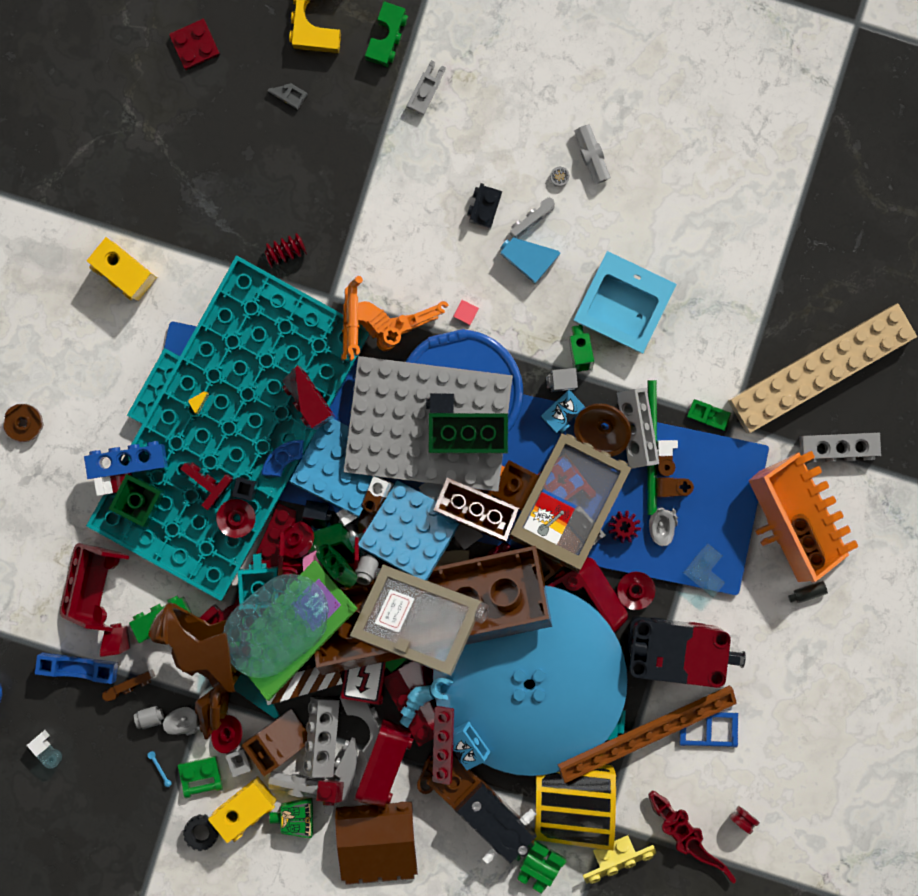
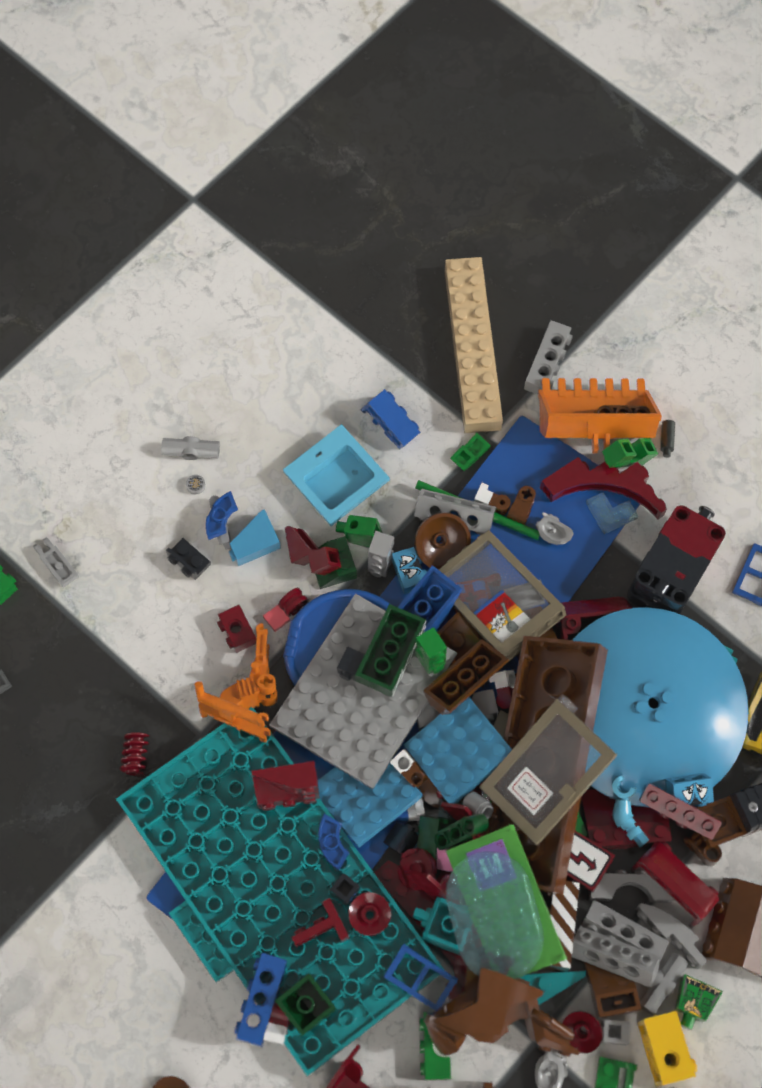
camera: 70 degrees left, 20 degrees down
(126, 274) = (81, 915): yellow piece -> none
(190, 582) = (428, 965): none -> blue window
(198, 401) = (238, 899): yellow slope -> none
(298, 737) = (615, 956): none -> light grey brick
(330, 792) = (683, 947): dark red brick -> none
(449, 277) = (235, 617): none -> dark red brick
(479, 471) = (431, 651): none -> green arch
(486, 321) = (293, 602): none -> dark red wheel
(487, 547) = (504, 685): none -> leg
(535, 214) = (219, 514): none -> blue tile
(536, 444) = (432, 598): none -> blue slope
(539, 307) = (305, 551): none -> dark red arch
(539, 338) = (346, 572): none -> dark green slope
(618, 523) = (546, 560): dark red gear -> none
(644, 595) = (607, 573): dark red dish -> none
(647, 734) = (743, 627): dark orange plate -> none
(706, 327) = (392, 419): none -> blue wedge
(742, 576) = (630, 483): none -> dark red arch
(770, 565) = (624, 454): none -> green arch

